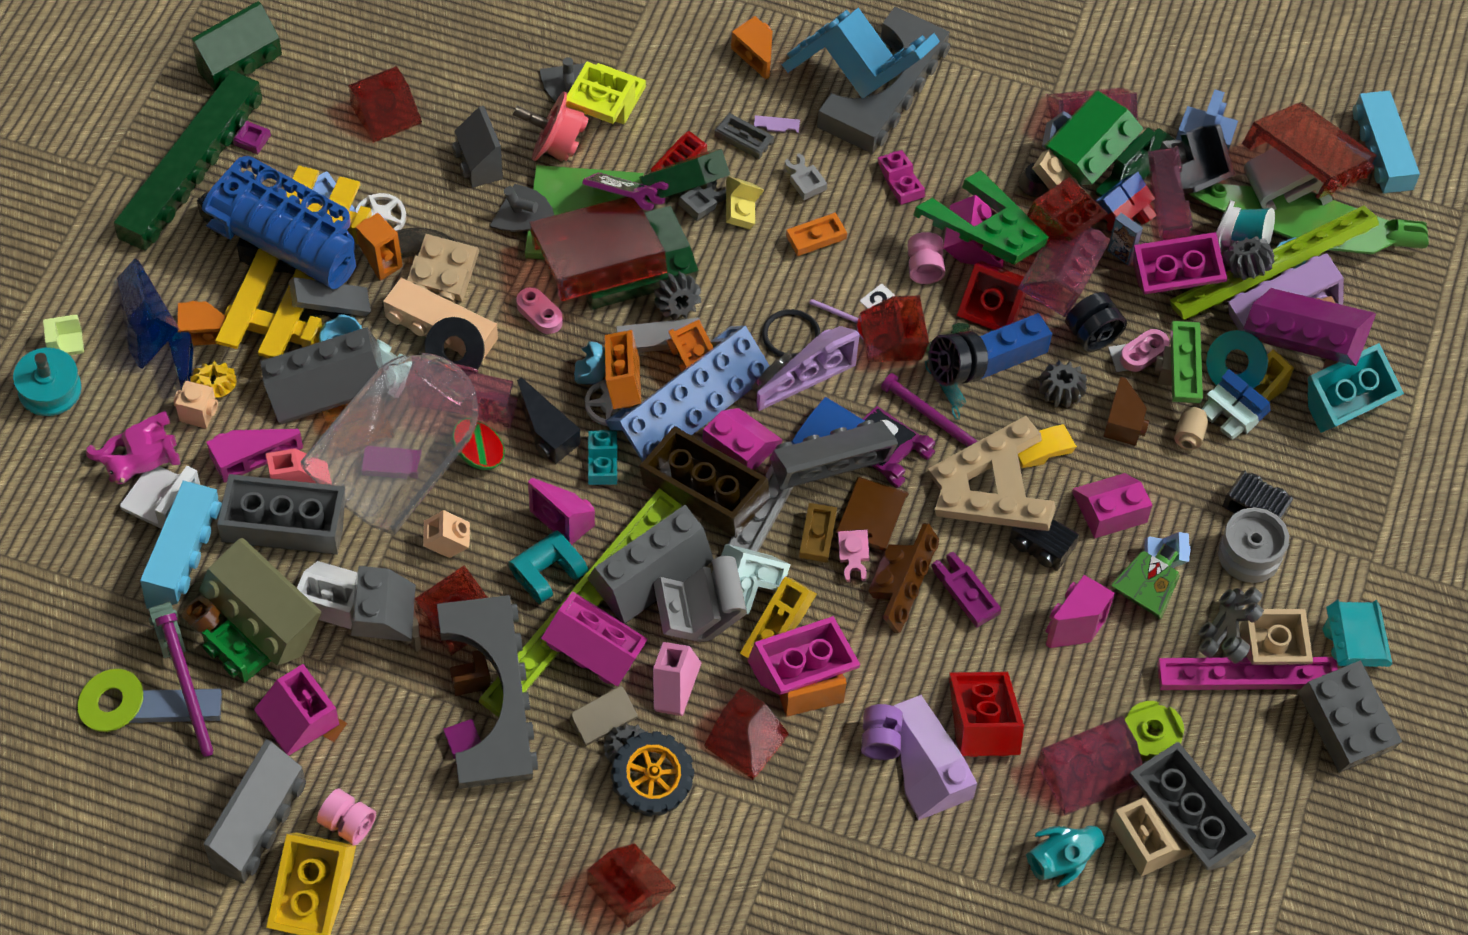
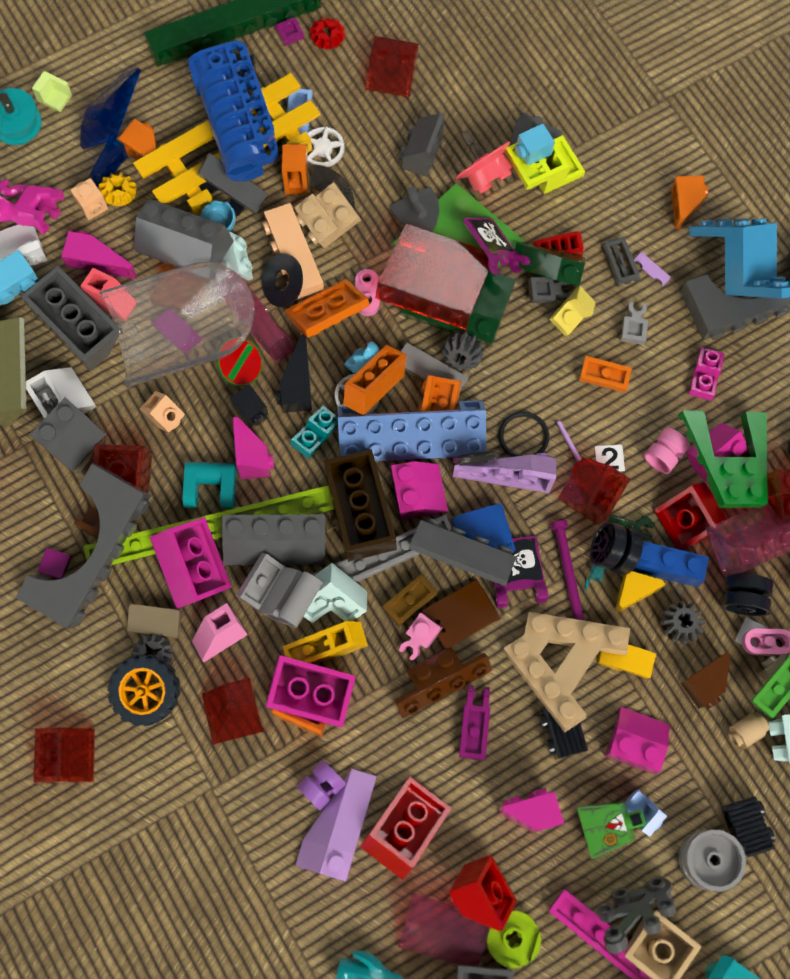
camera: 40 degrees right, 15 degrees up
(291, 124) = (321, 39): none -> red gear
(518, 472) = (249, 406): none -> black brick
(519, 342) = (327, 308): none -> orange plate
(591, 77) = (534, 144): none -> medium azure brick
(999, 385) = (635, 588): none -> yellow slope
(1095, 705) = (483, 893): none -> red slope

